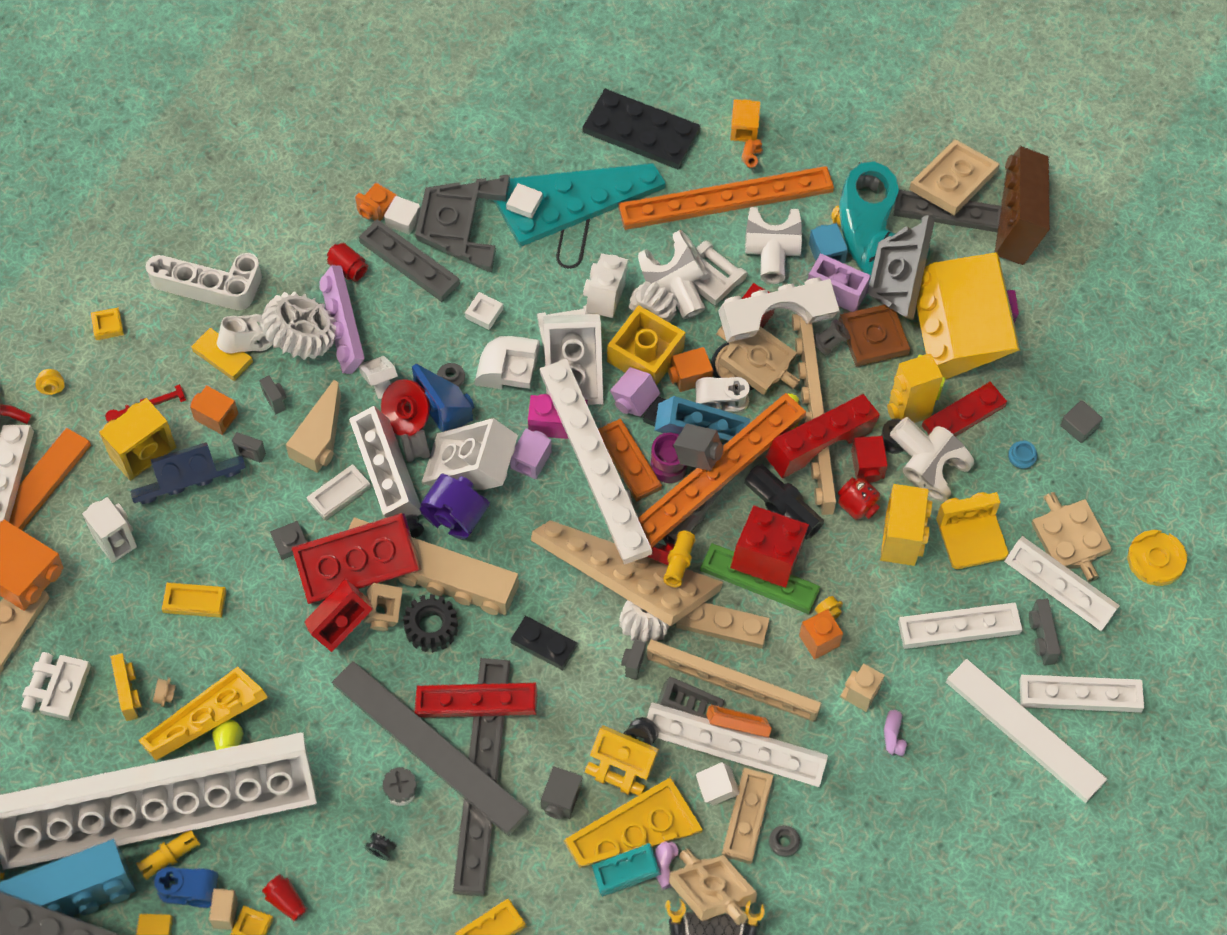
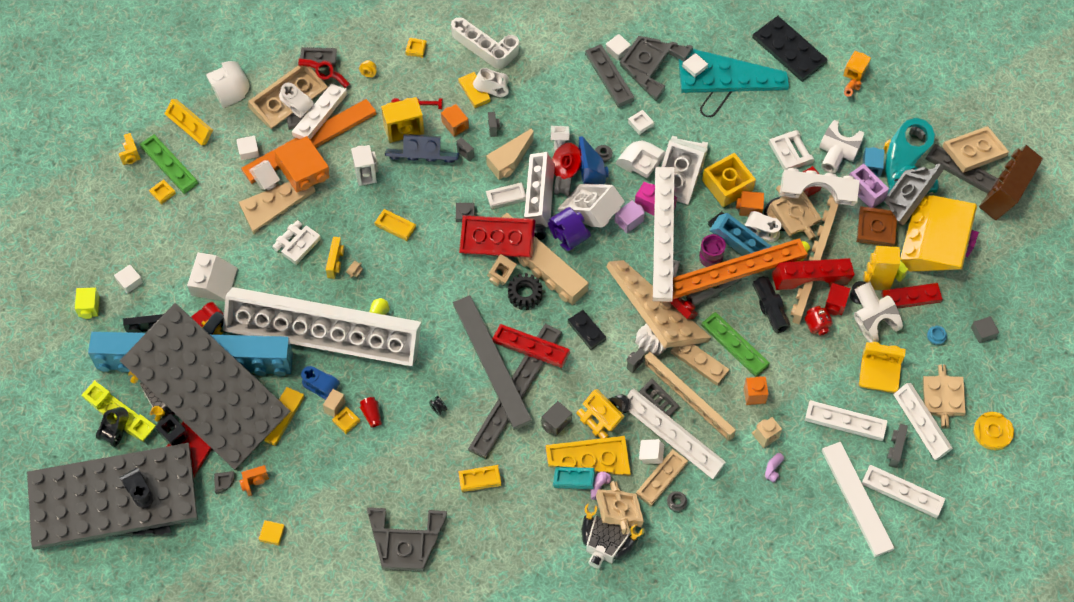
camera: 25 degrees right, 0 degrees up
(168, 854) = (317, 360): yellow pin -> none
(211, 708) = (375, 289): yellow wing -> none
(298, 325) = (525, 89): white gear -> none
(338, 615) = (472, 264): red brick -> none
(346, 333) = (553, 95): lavender plate -> none
(352, 263) = (571, 63): red brick -> none
(374, 202) = (604, 33): orange bracket -> none
(399, 786) = (464, 376): dark grey piece -> none
(605, 285) = (721, 134): white brick -> none
(629, 460) = (688, 243): orange tile -> none
(634, 392) = (709, 204): lavender brick -> none
(655, 300) = (747, 154): white gear -> none
(677, 274) = (767, 144): white connector -> none
(679, 559) = (688, 311): yellow pin -> none
(698, 447) = (729, 249): dark grey brick -> none
(725, 197) = (823, 109): orange tile -> none
(738, 721) = (681, 420): orange tile -> none
(769, 546) = (748, 326): red brick -> none
(832, 605) = (771, 378): yellow plate -> none
(839, 334) = (853, 214): dark grey bush -> none
(906, 525) = (839, 346): yellow brick -> none

